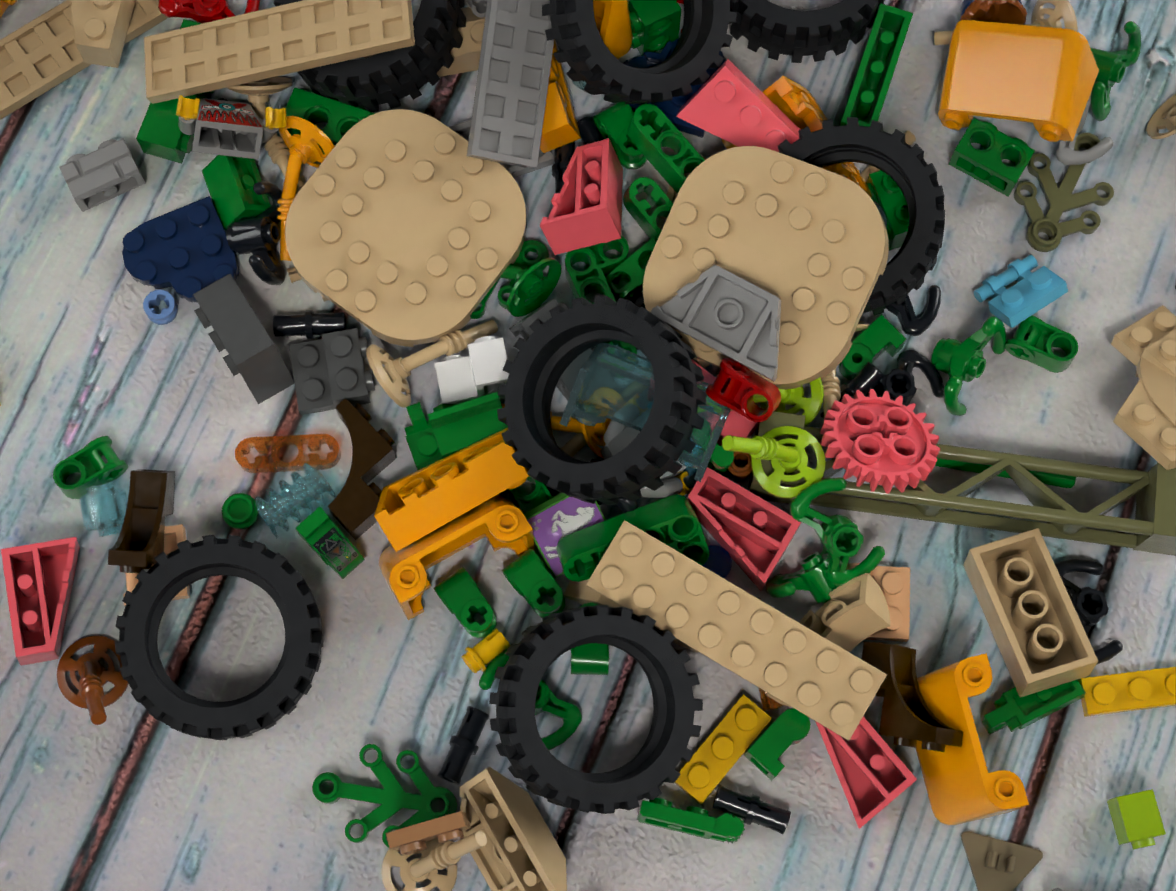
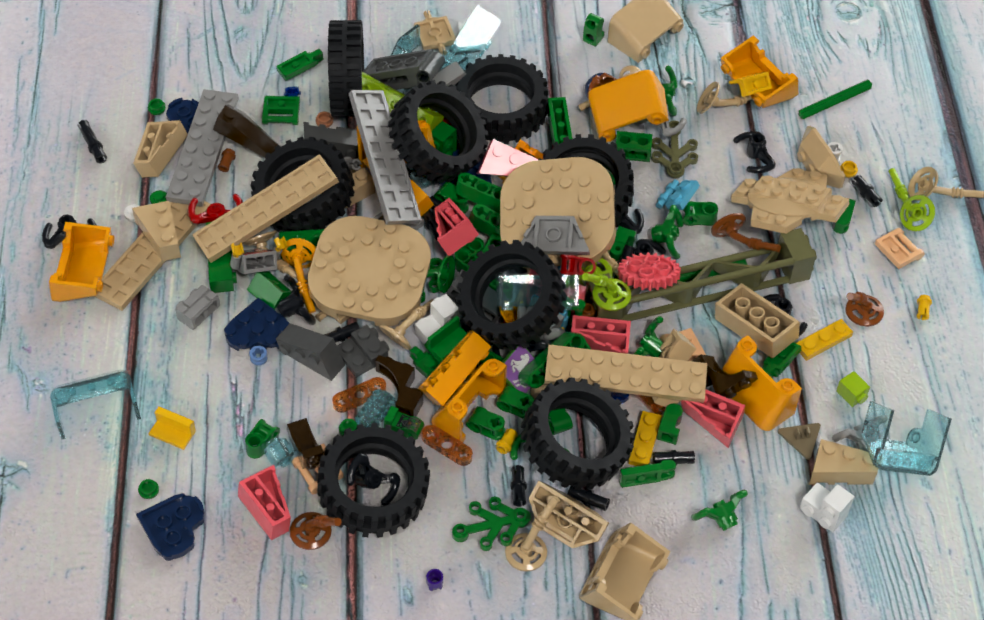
camera: 25 degrees left, 20 degrees down
(224, 630) = (372, 478): none -> black piece
(232, 856) = (434, 574): none -> dark purple hose
(381, 585) = (450, 453): none -> clear orange beam
(414, 837) = (522, 519): medium nougat plate -> none
(570, 824) = (589, 498): none -> black pin
(836, 533) = (650, 316): green piece -> none
(1077, 401) = (731, 228): none -> dark orange dish

